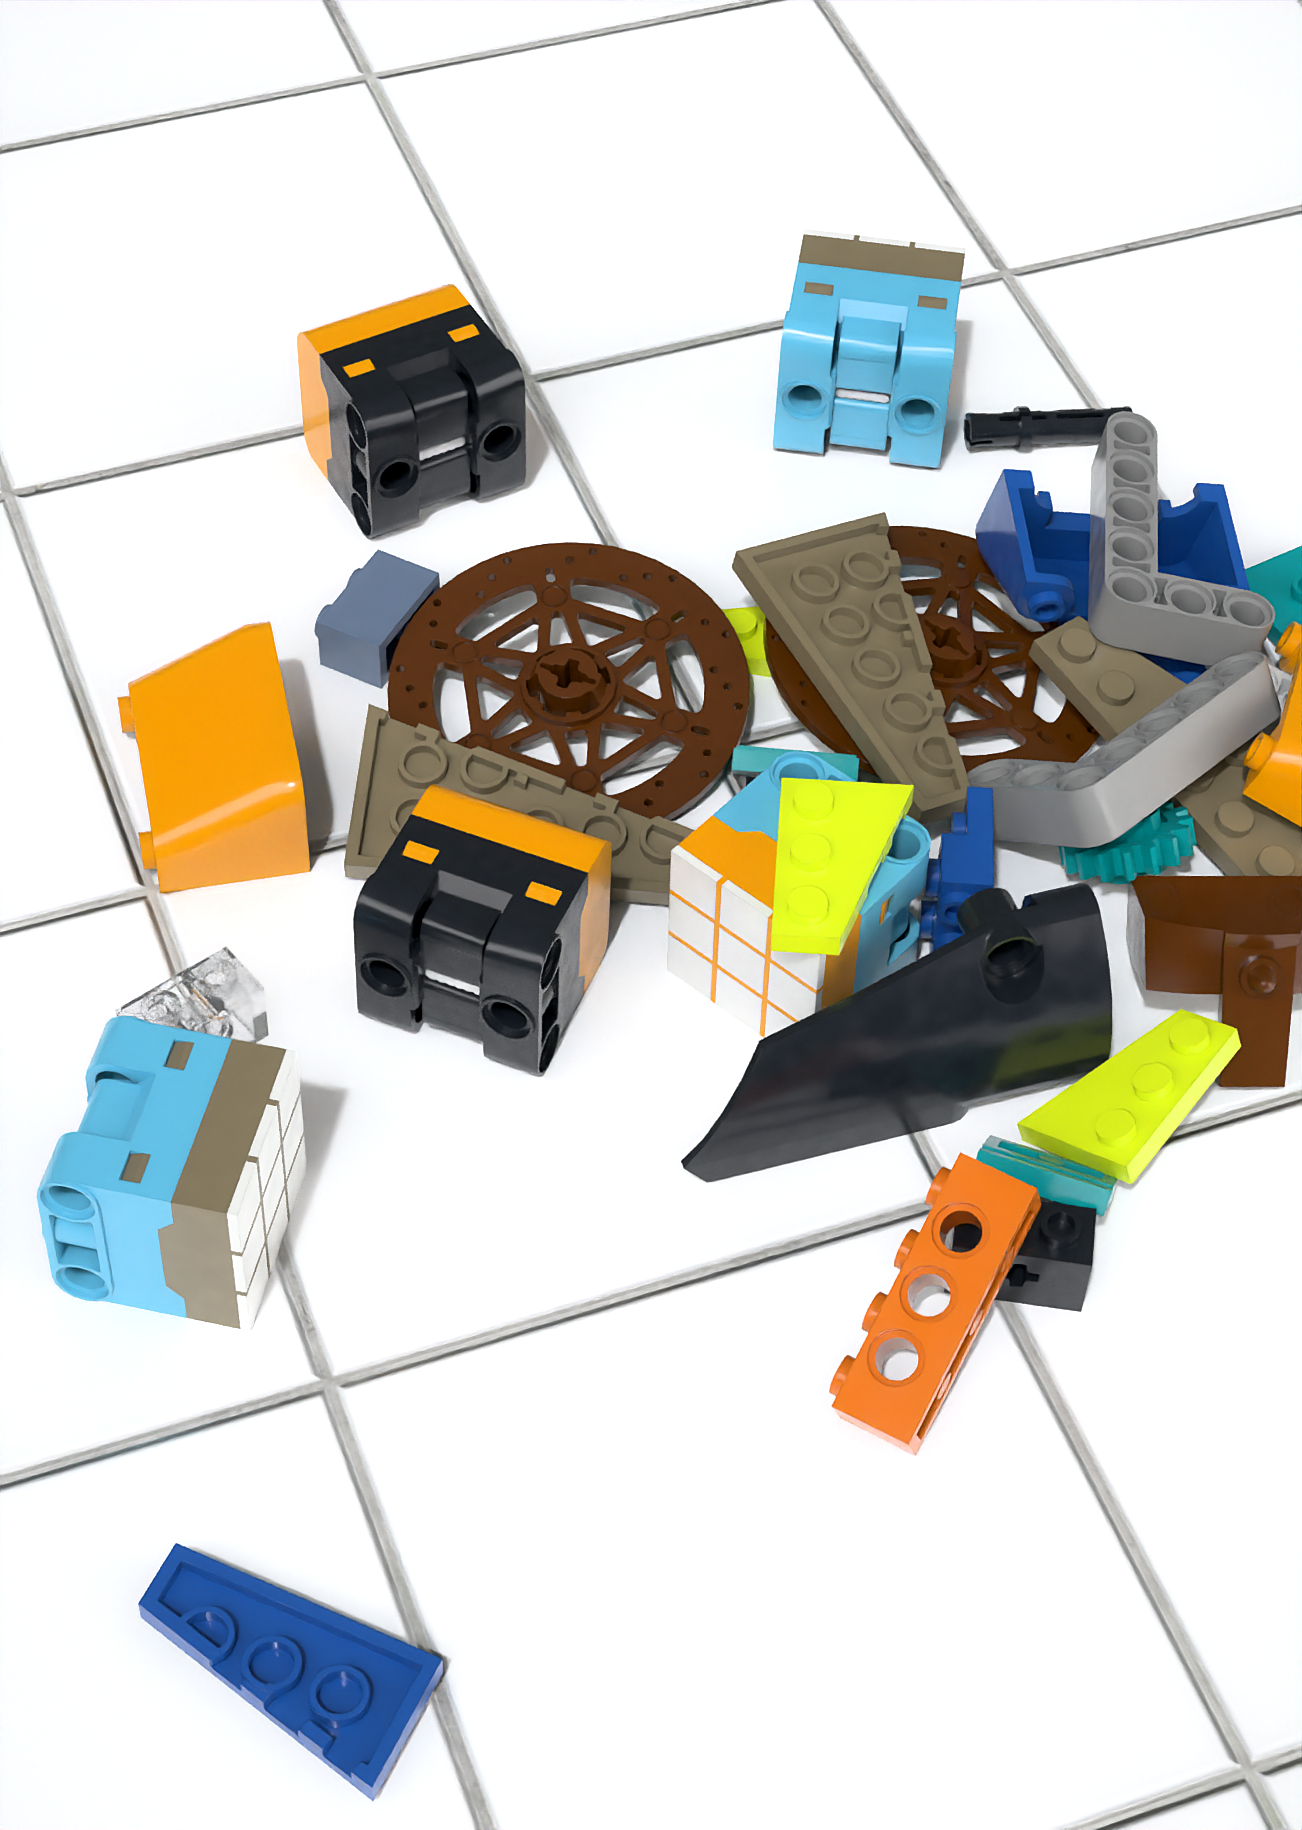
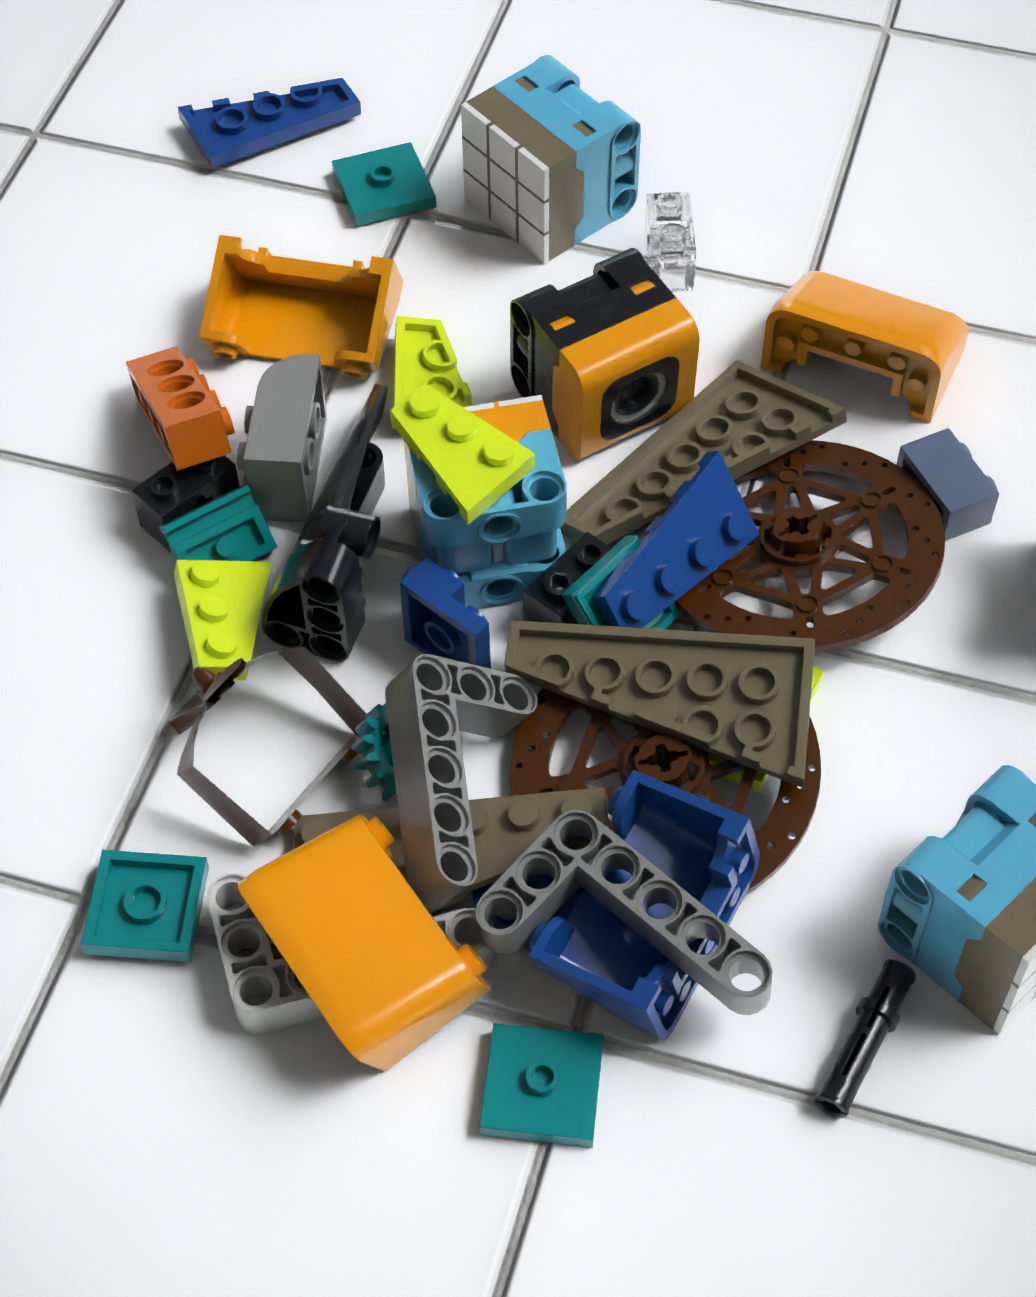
camera: 130 degrees right, 5 degrees up
(306, 1429) = (383, 184): none -> teal plate
(617, 1334) = (298, 307): none -> light orange windscreen
(622, 1147) = (426, 357): none -> neon yellow wing
(688, 723) = (681, 547): none -> blue wing
(860, 1177) = (285, 438): none -> light grey brick

